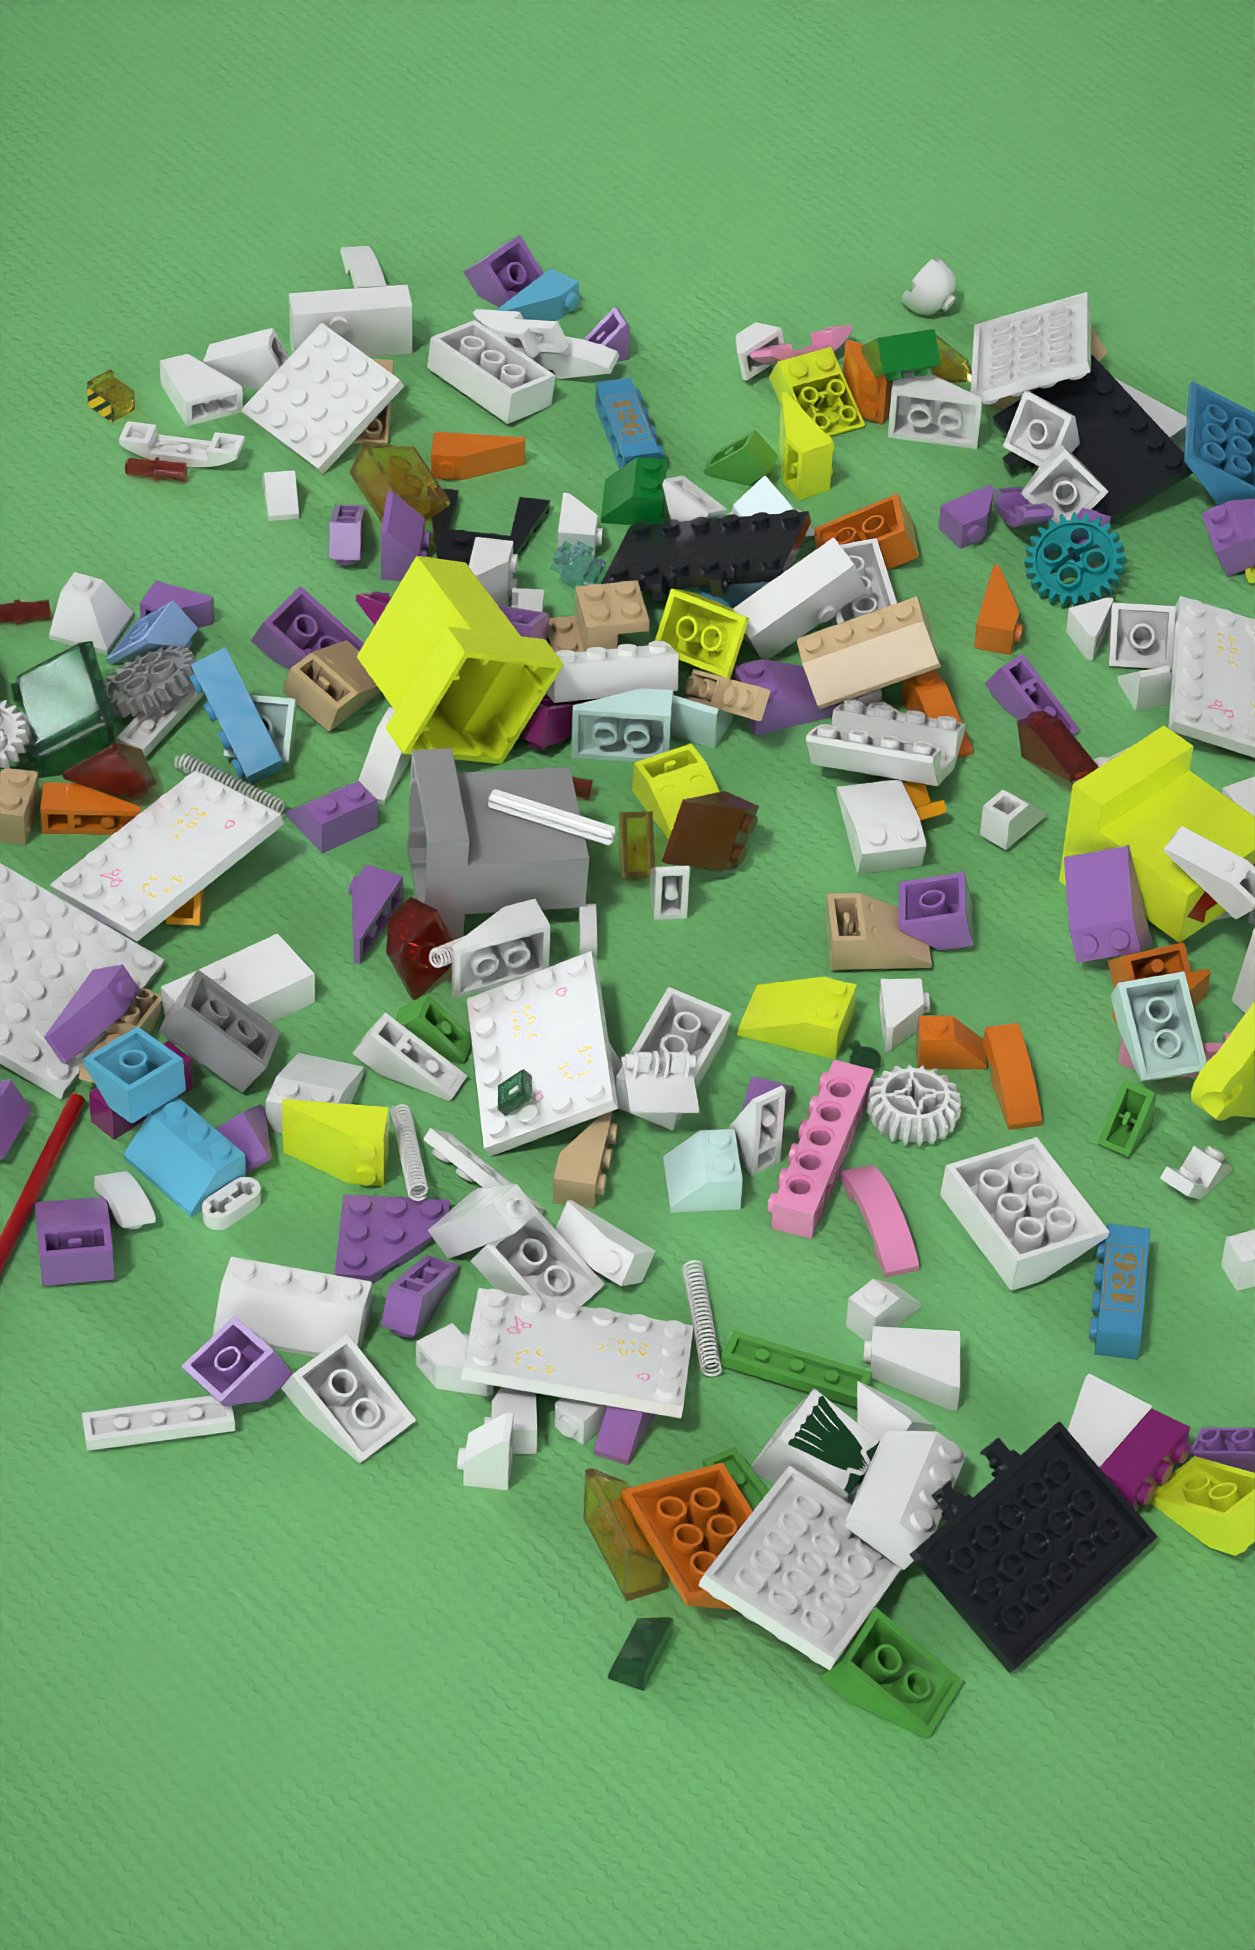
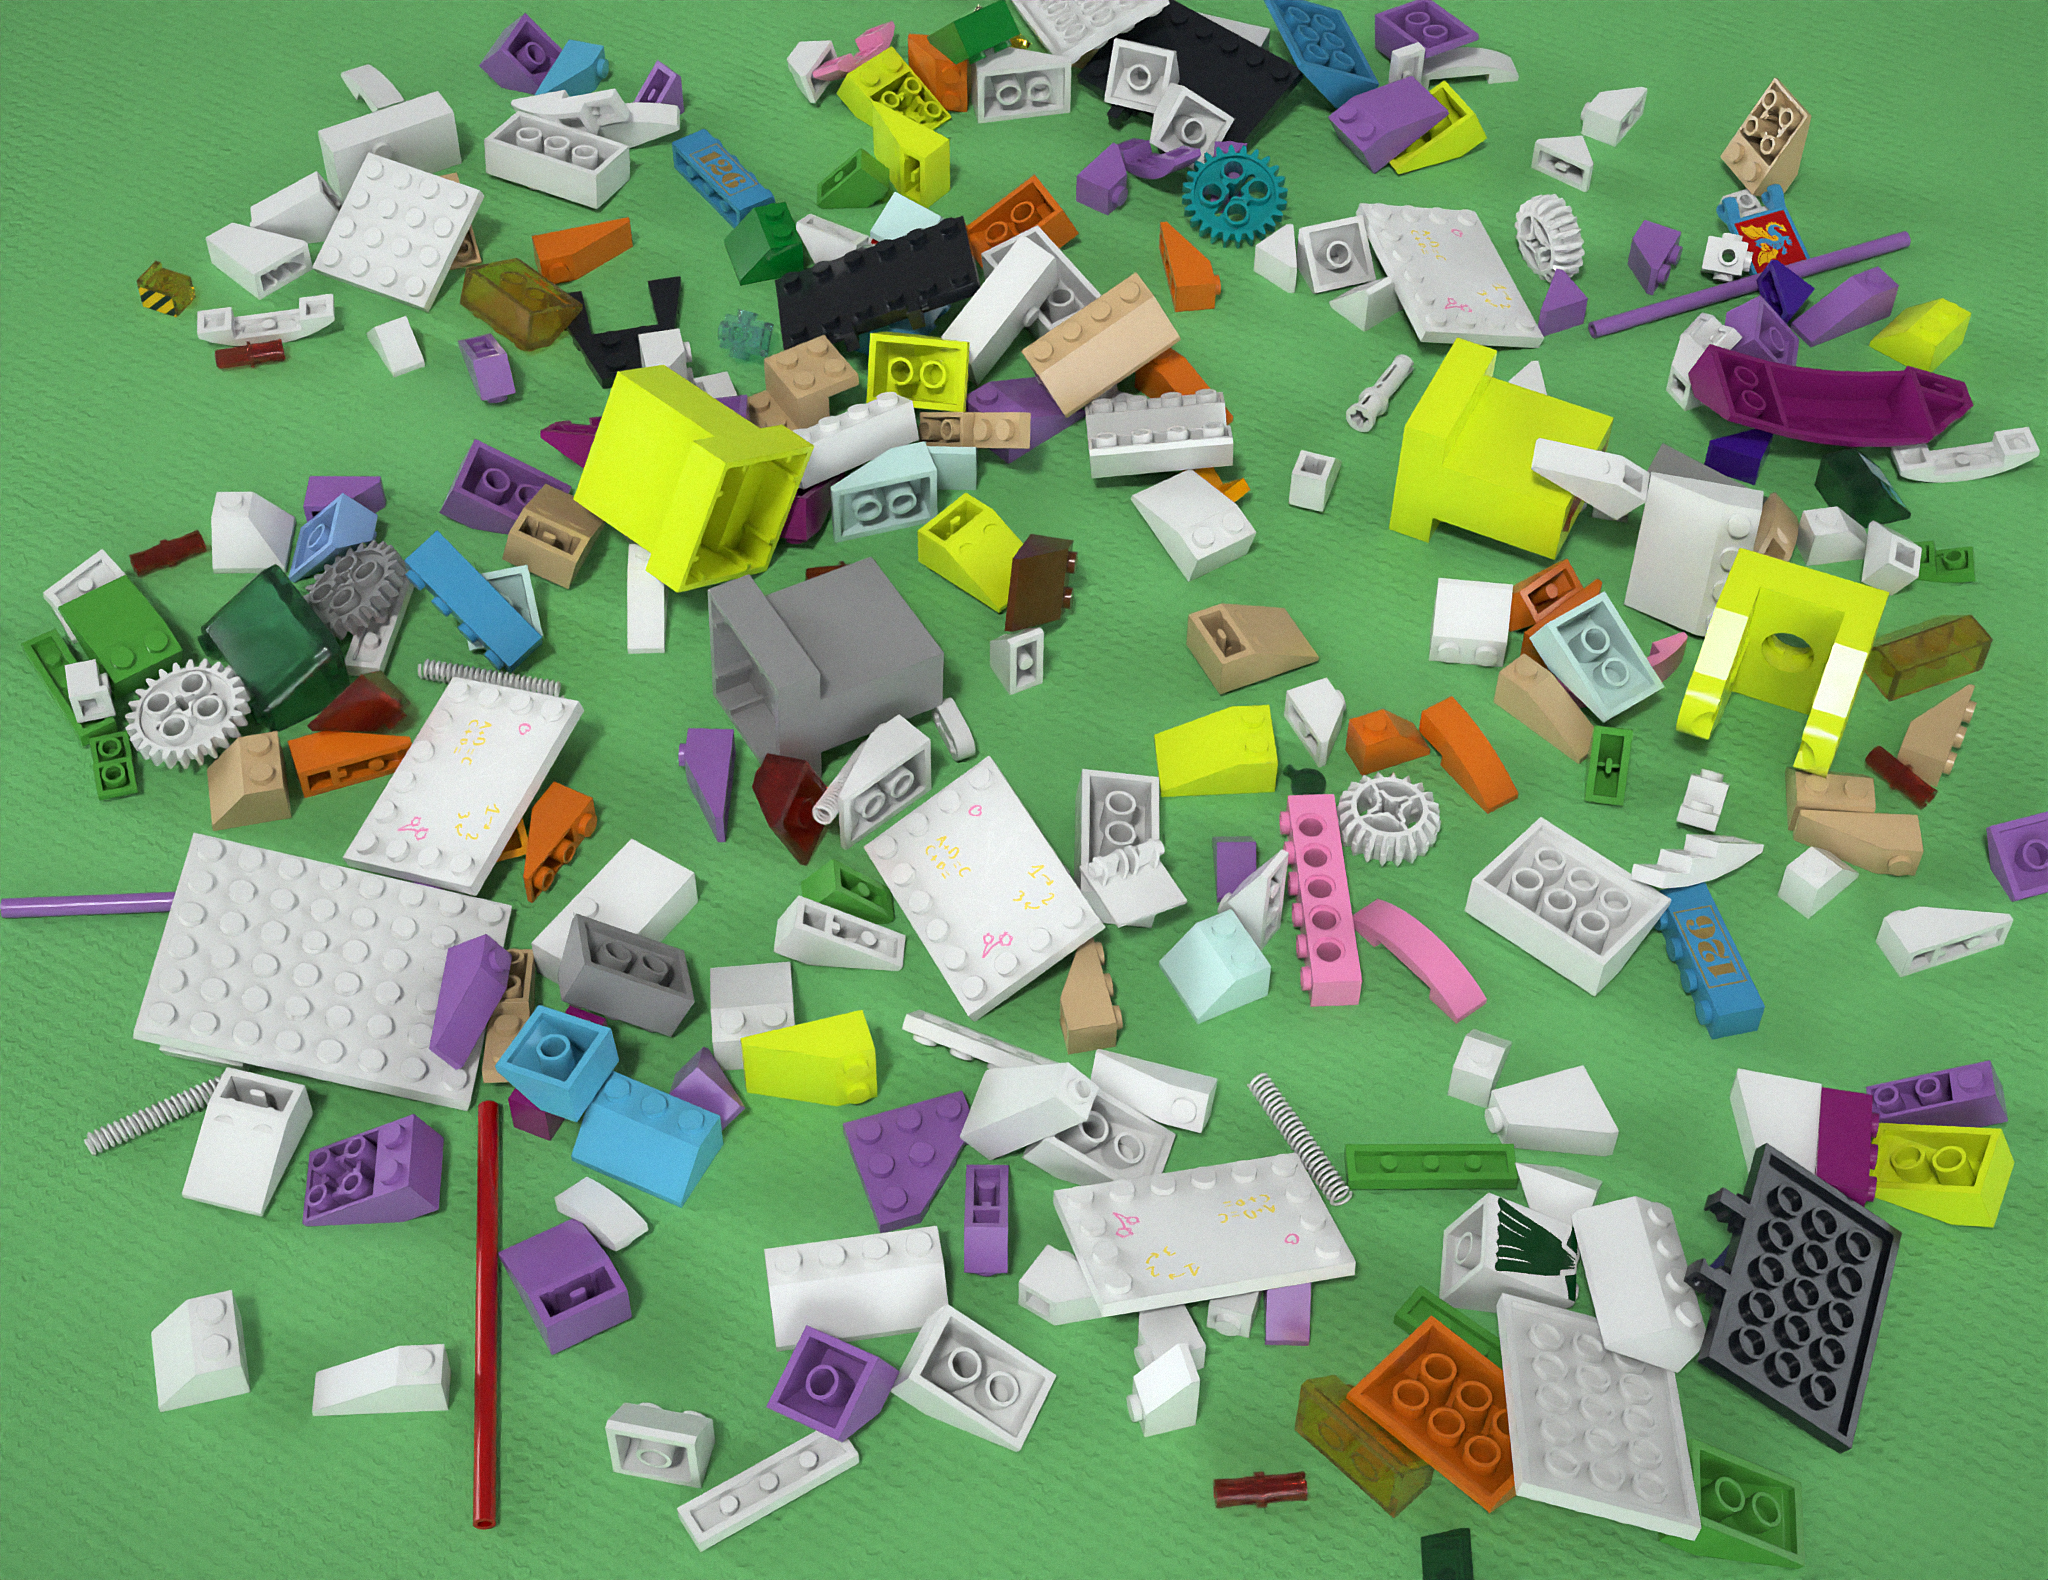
camera: 20 degrees left, 5 degrees up
(89, 1366) = (660, 1443): none -> white slope
(222, 915) = (556, 829): none -> orange slope
(229, 1202) = (714, 1172): white beam -> none
(336, 816) = (622, 680): medium lavender slope -> none
(401, 538) = (553, 361): medium lavender slope -> none
(409, 1151) = (891, 1057): white piece -> none
(514, 1092) = (980, 943): clear green tile -> none
(529, 1545) = (1260, 1489): none -> clear red pin
(552, 817) = (884, 618): white axle -> none
(578, 523) = (722, 294): white slope -> none
(636, 844) = (957, 619): clear yellow slope -> none
(937, 911) = (1300, 597): medium lavender slope -> none
(1023, 691) = (1264, 349): medium lavender slope -> none
(1053, 747) = (1319, 391): clear red slope -> none
(1073, 972) = (1470, 622): none -> white slope
(1099, 1053) = (1544, 706): none -> tan slope
(1105, 904) = (1472, 535): medium lavender slope -> none
(1160, 1212) = (1700, 861): none -> white slope

